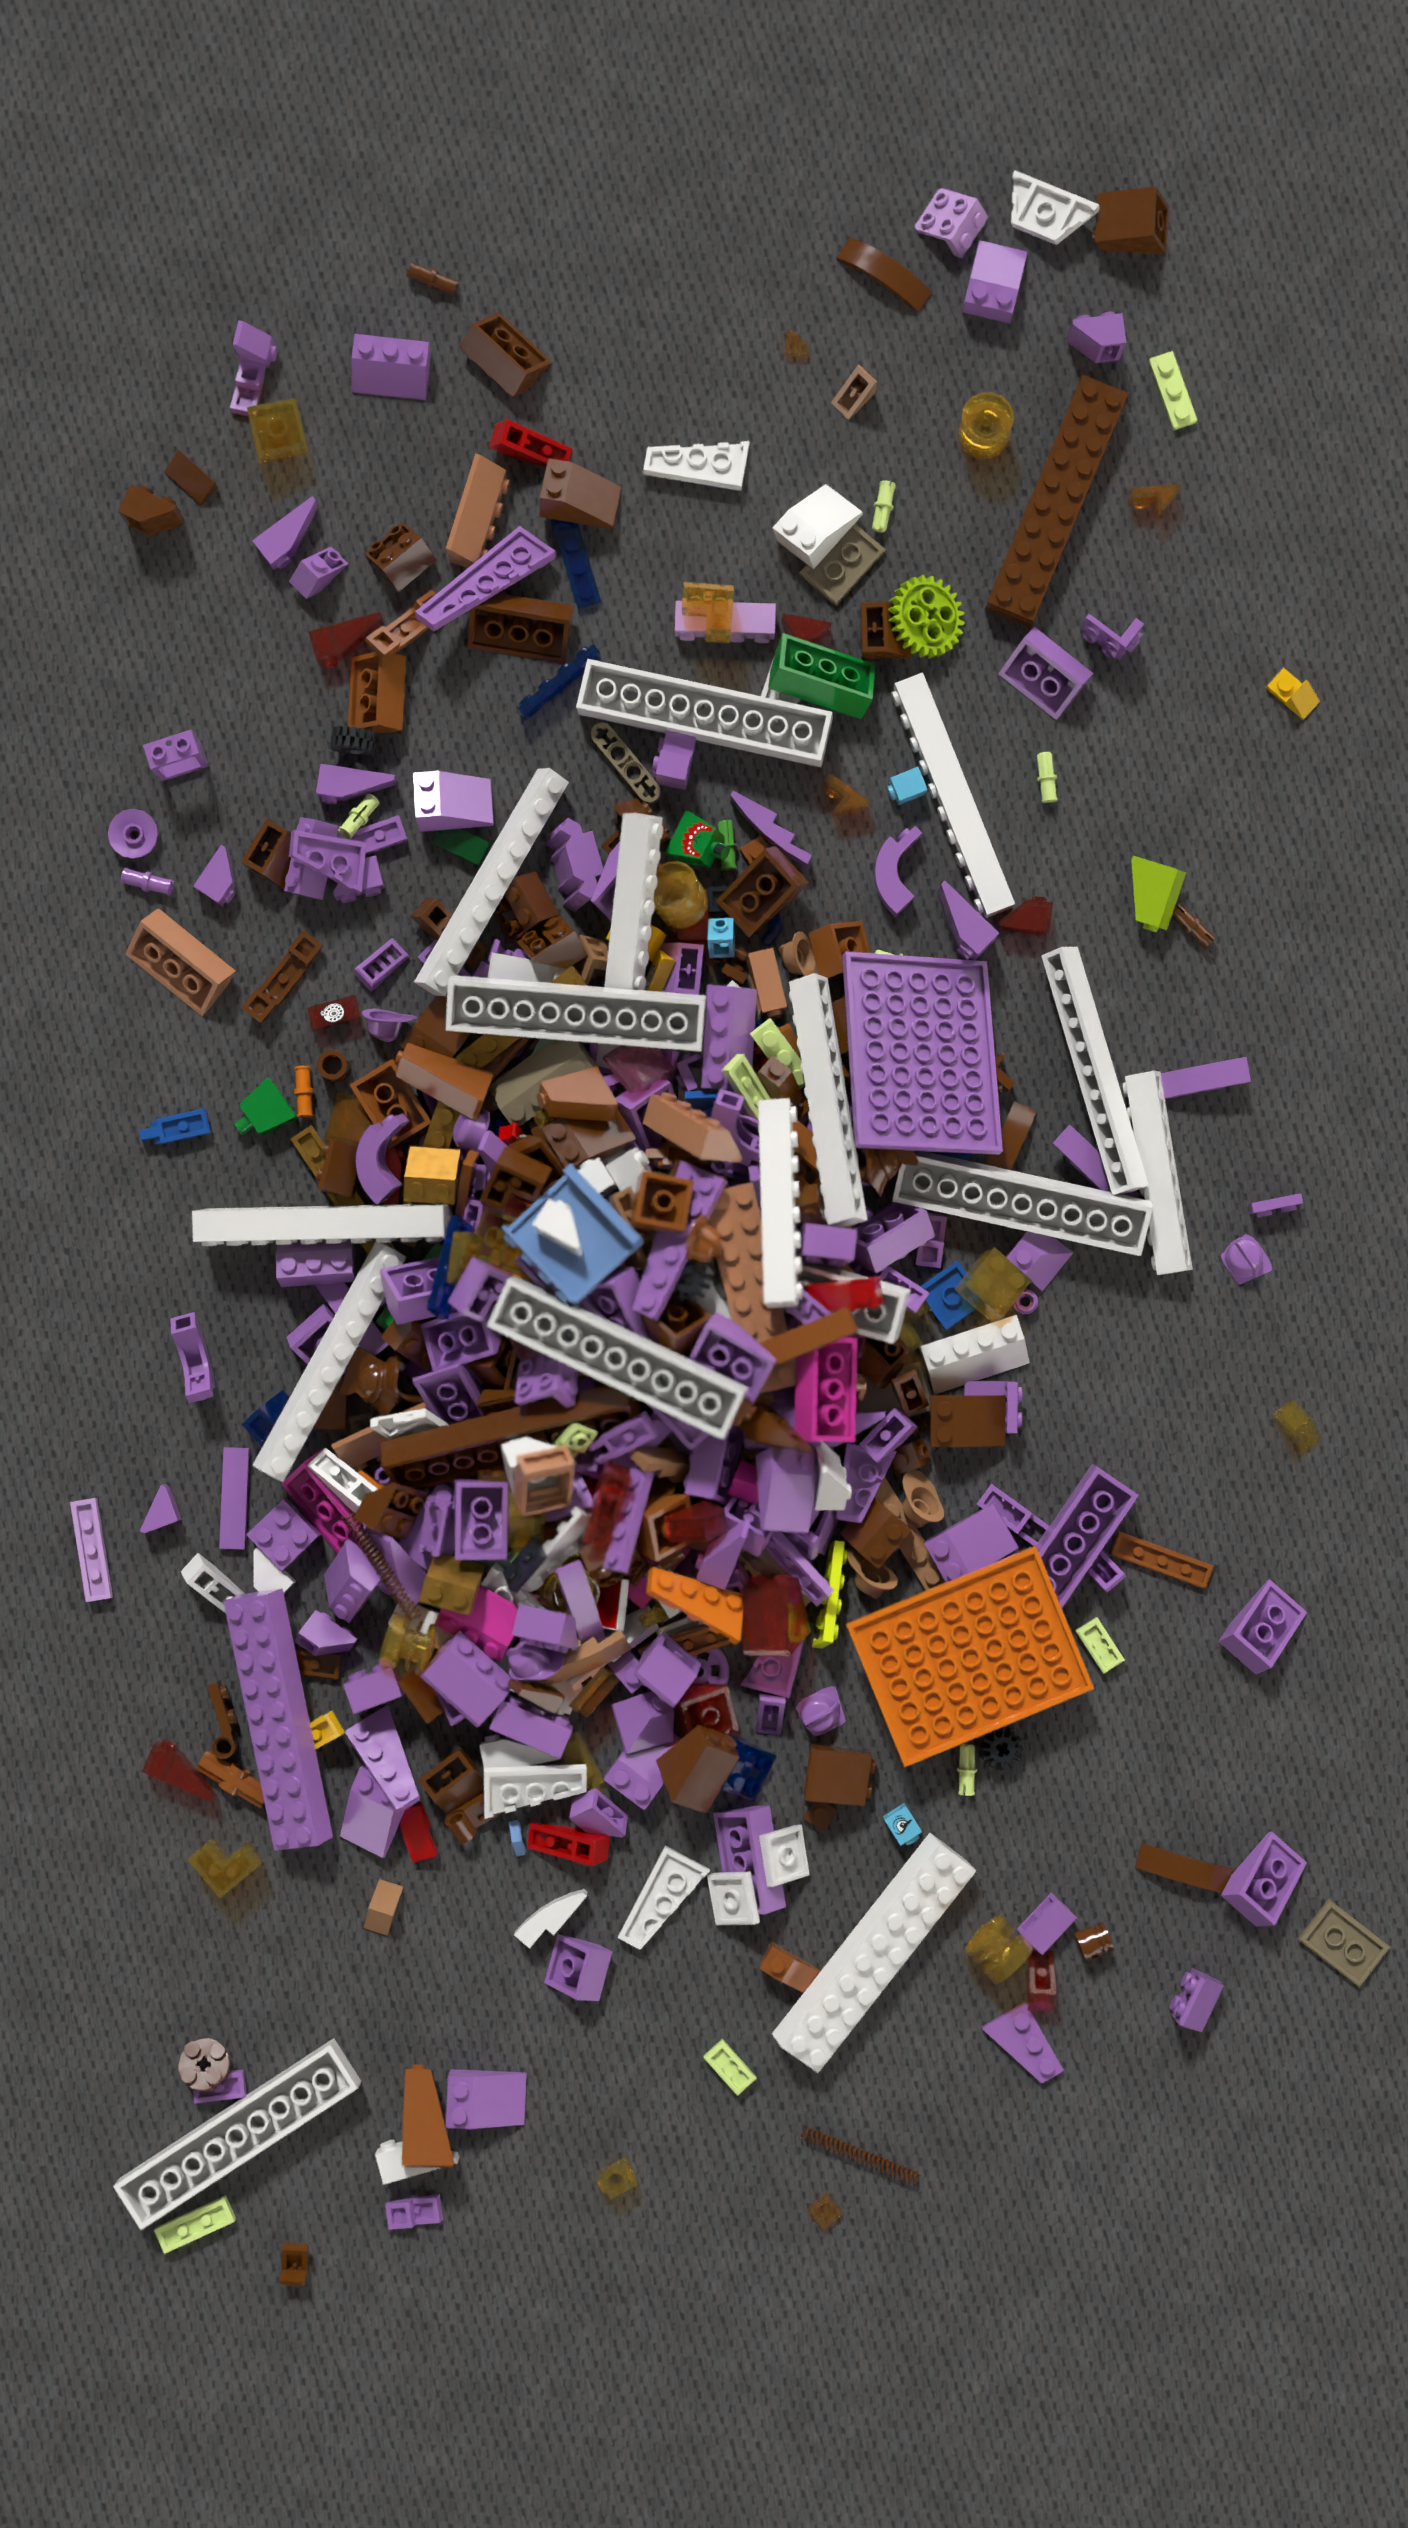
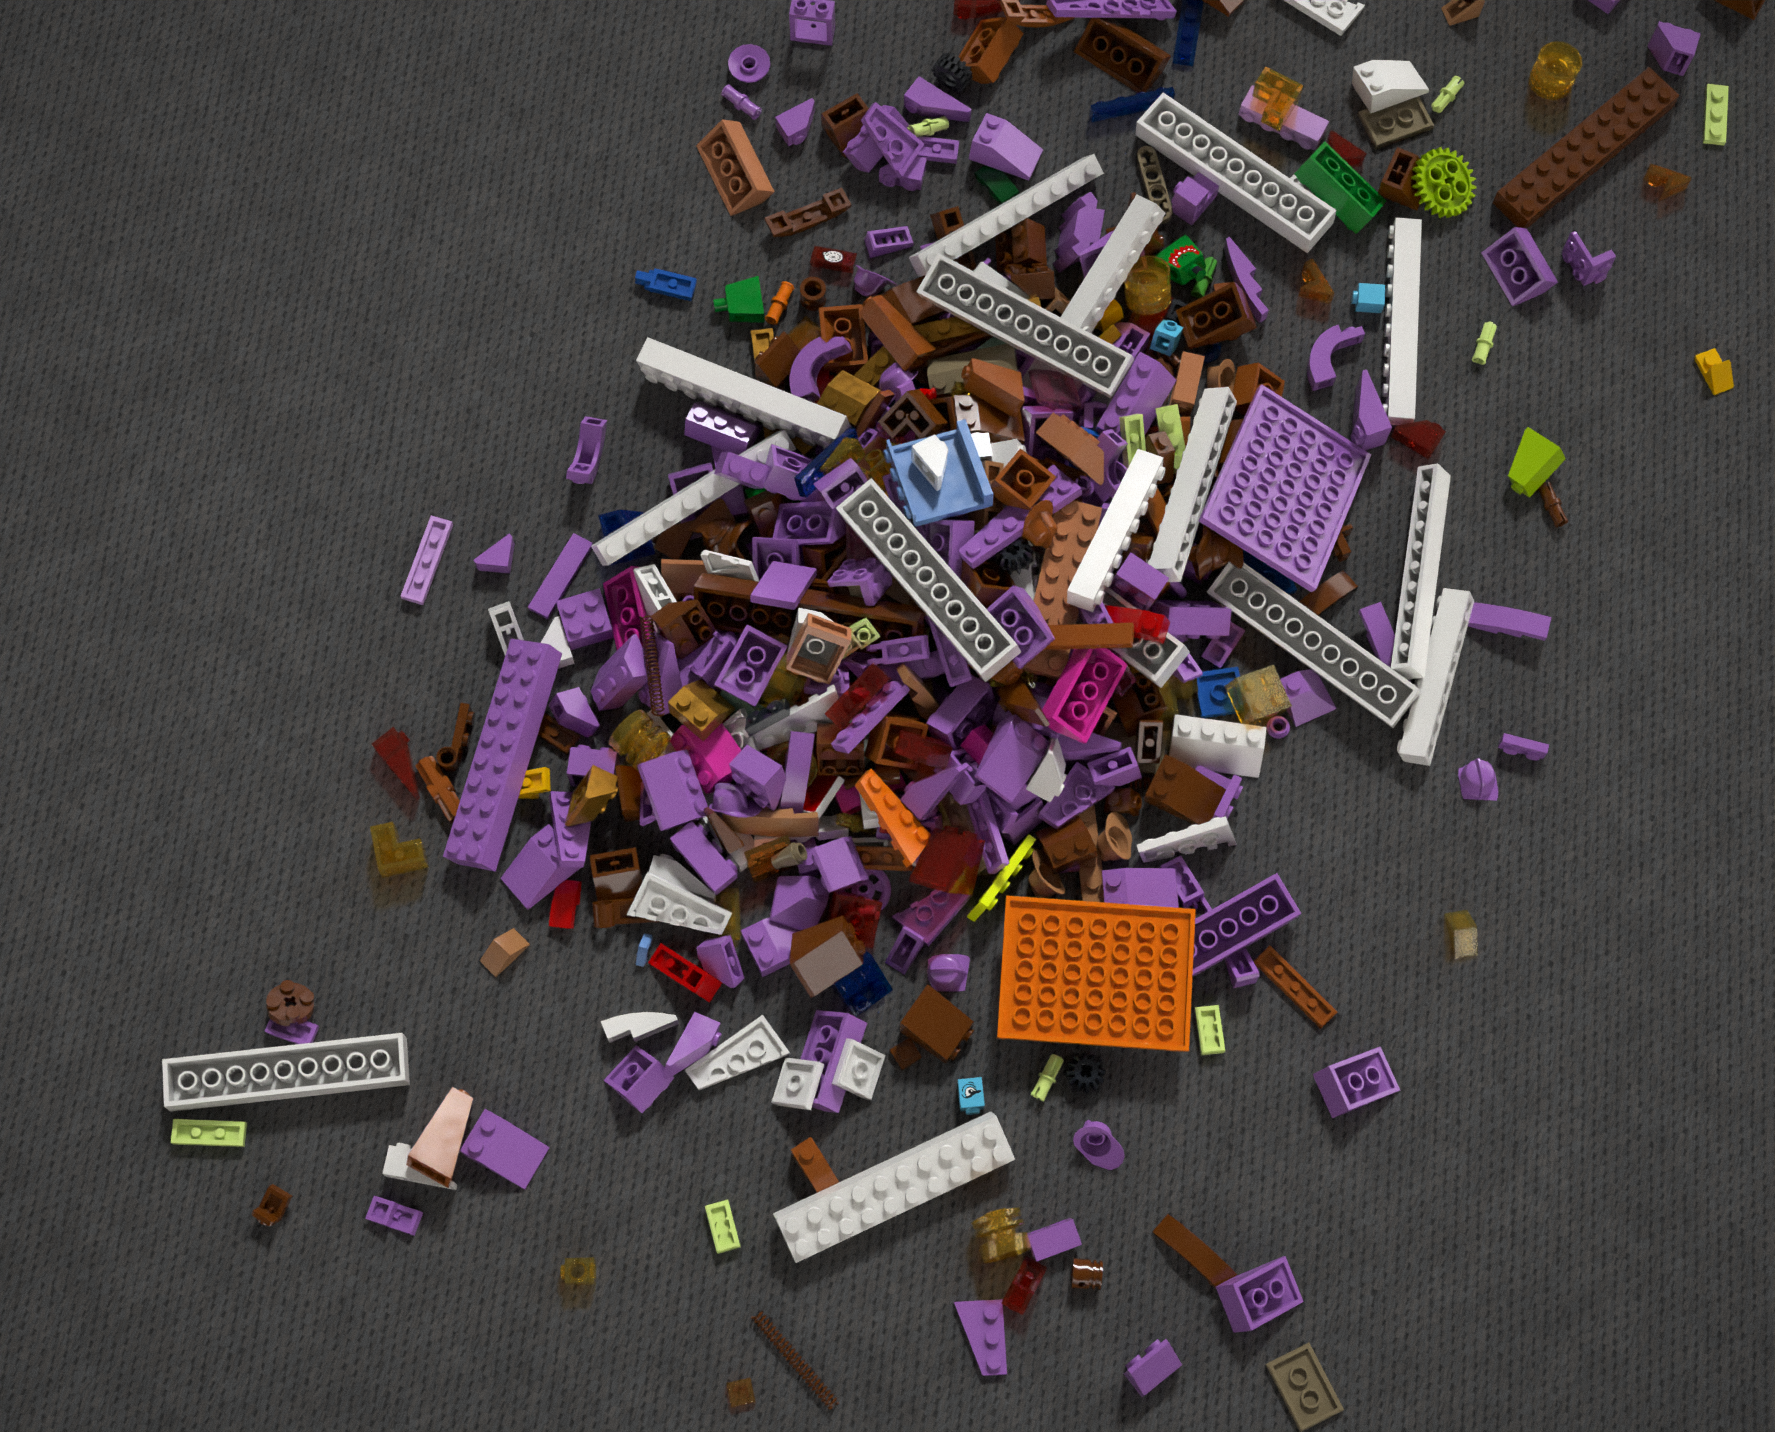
camera: 25 degrees right, 15 degrees down
(366, 1317) = (741, 470): none -> medium lavender brick
(389, 1724) = (591, 796): none -> pearl gold slope
(471, 1422) = (783, 585): none -> medium lavender tile
(614, 1911) = (693, 1044): none -> medium lavender slope
(615, 1684) = (791, 855): none -> dark tan cone
(1011, 1453) = (1187, 840): none -> white wing
(1046, 1812) = (1099, 1145): none -> medium lavender piece

